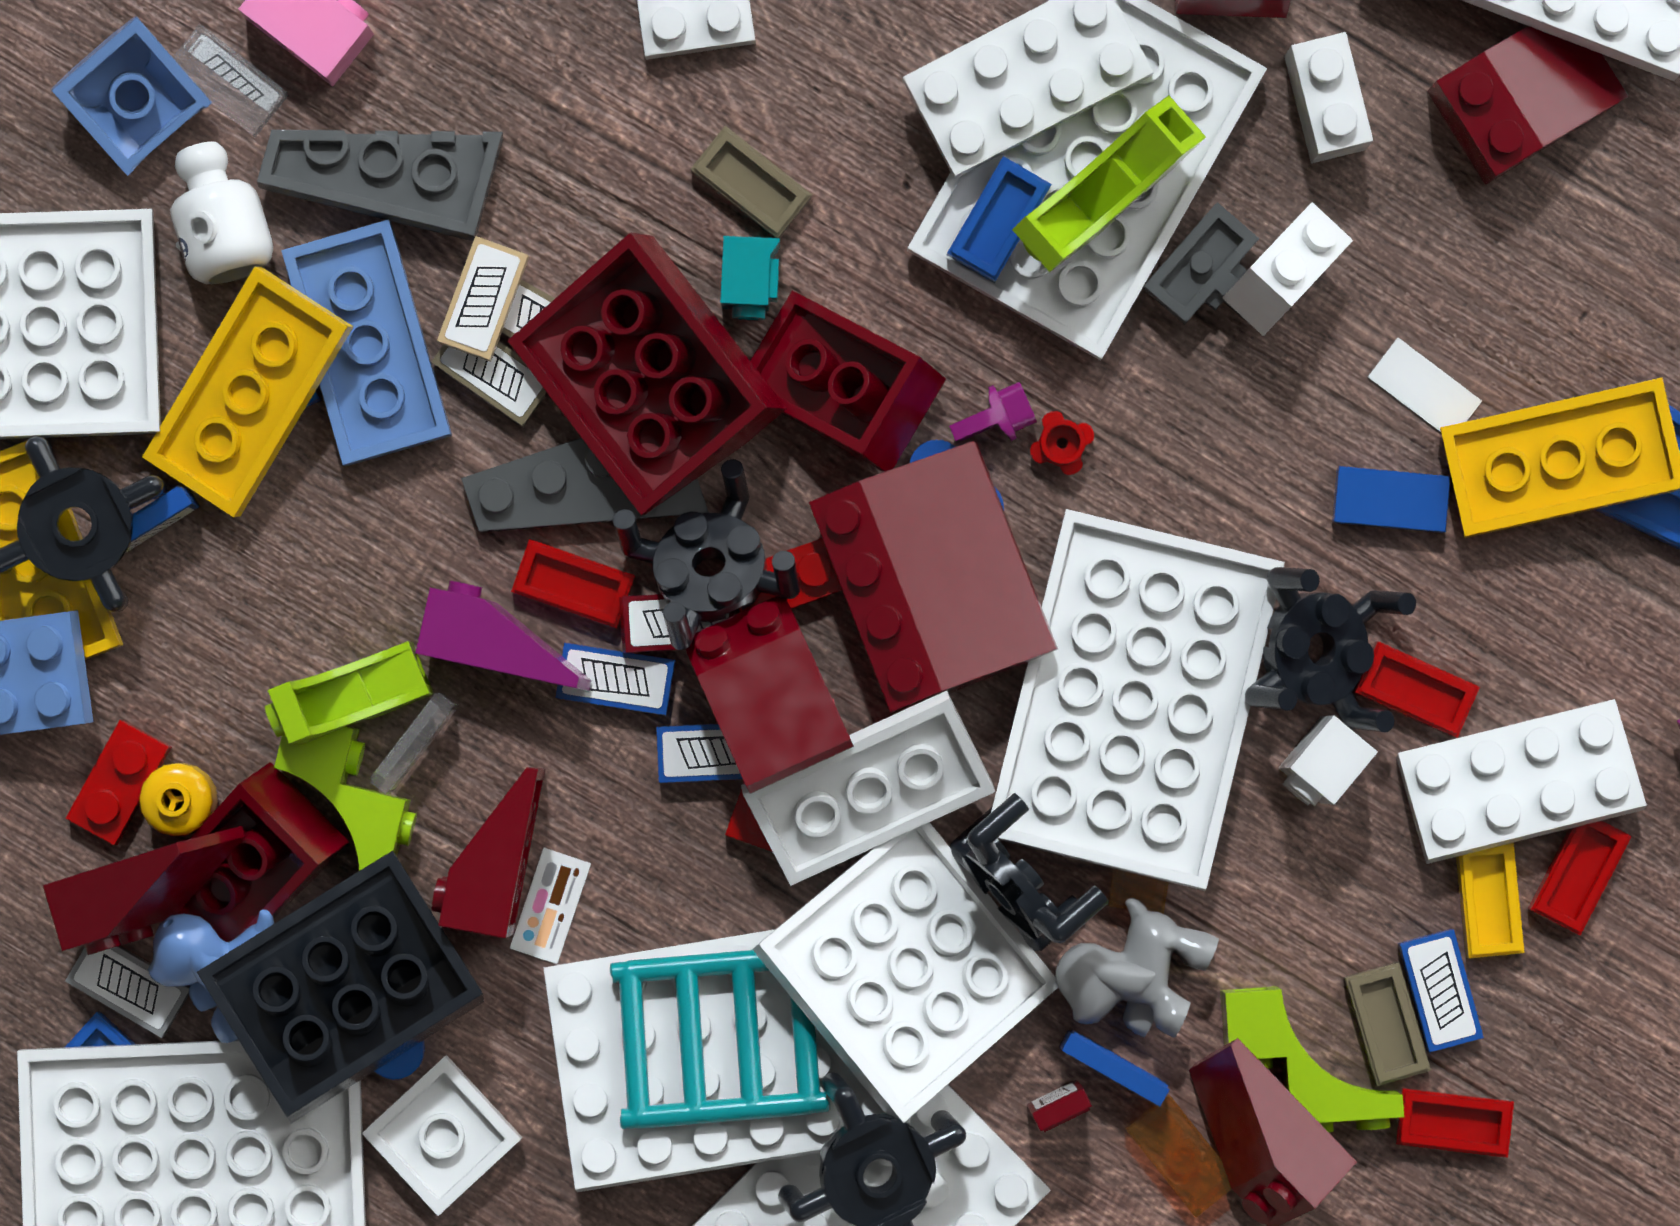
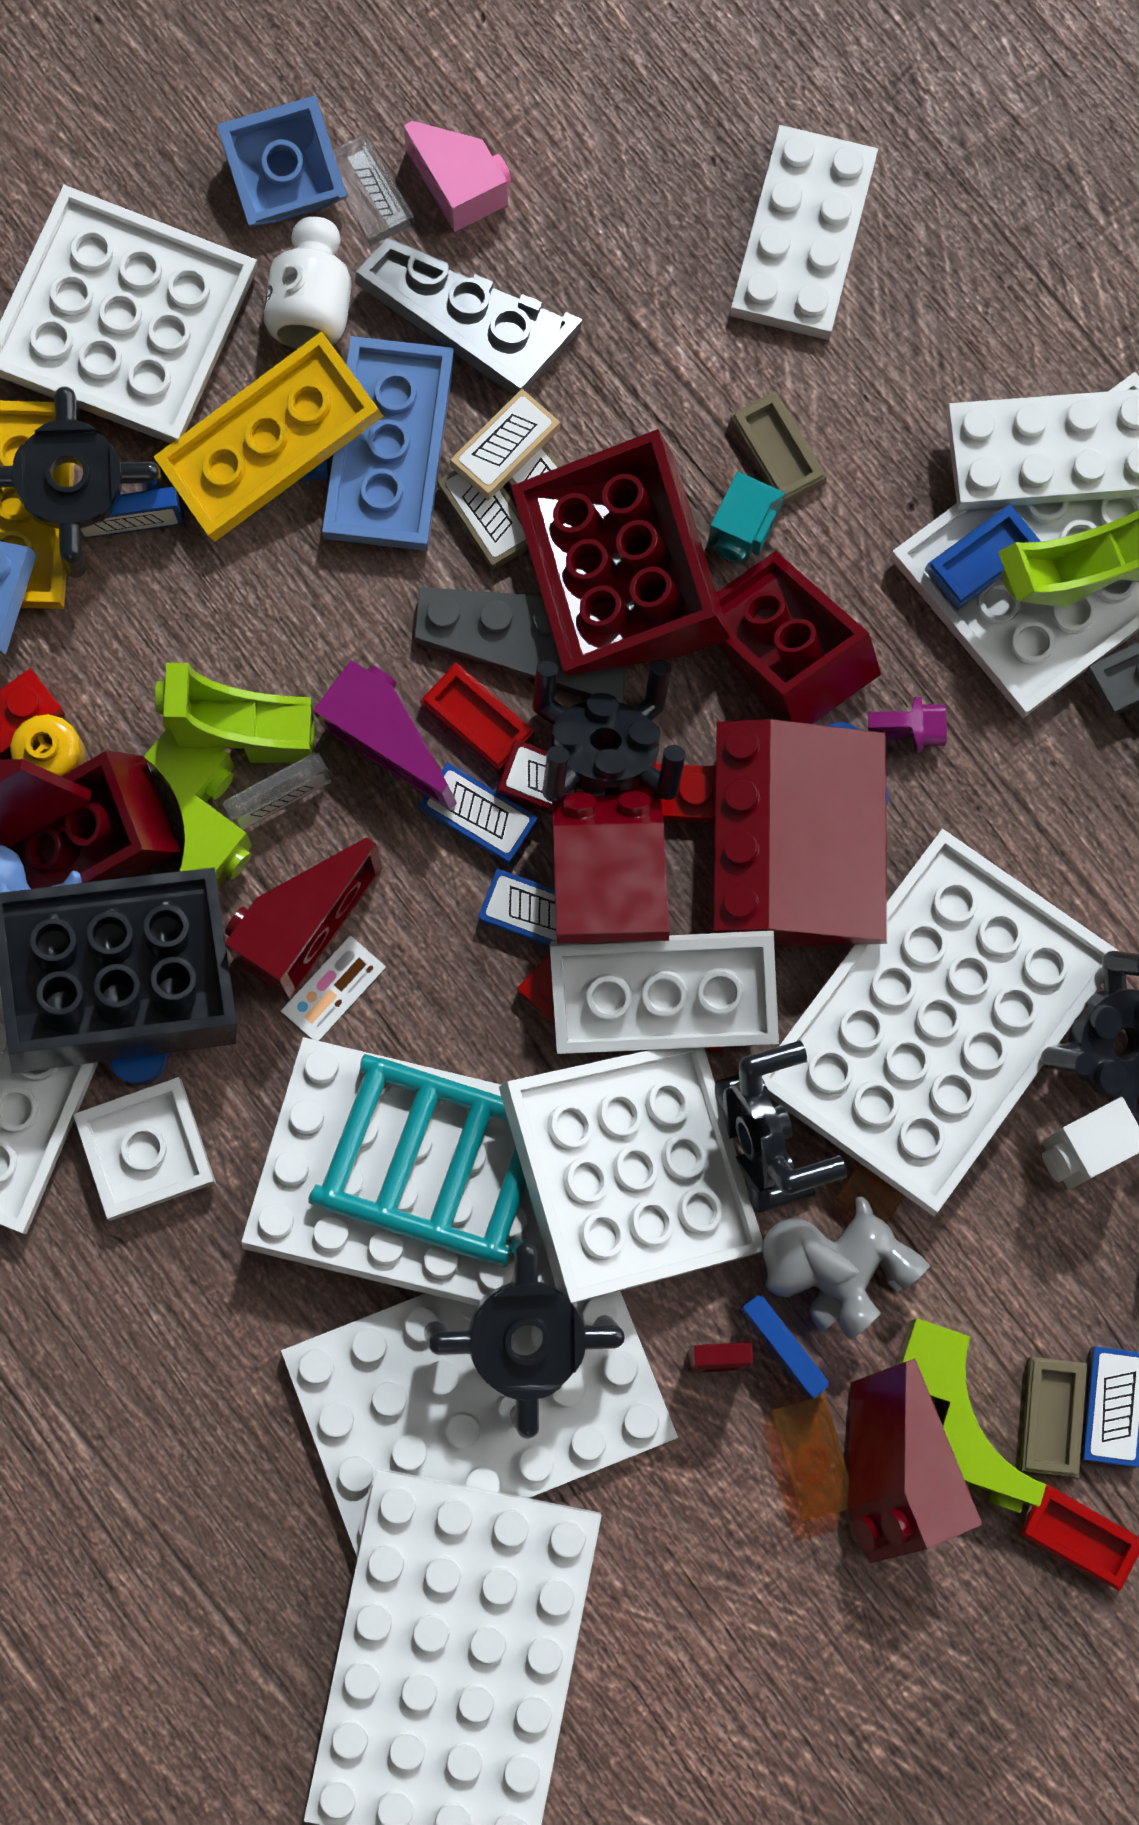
camera: 25 degrees right, 10 degrees down
(1077, 438) = (960, 758): red plate -> none

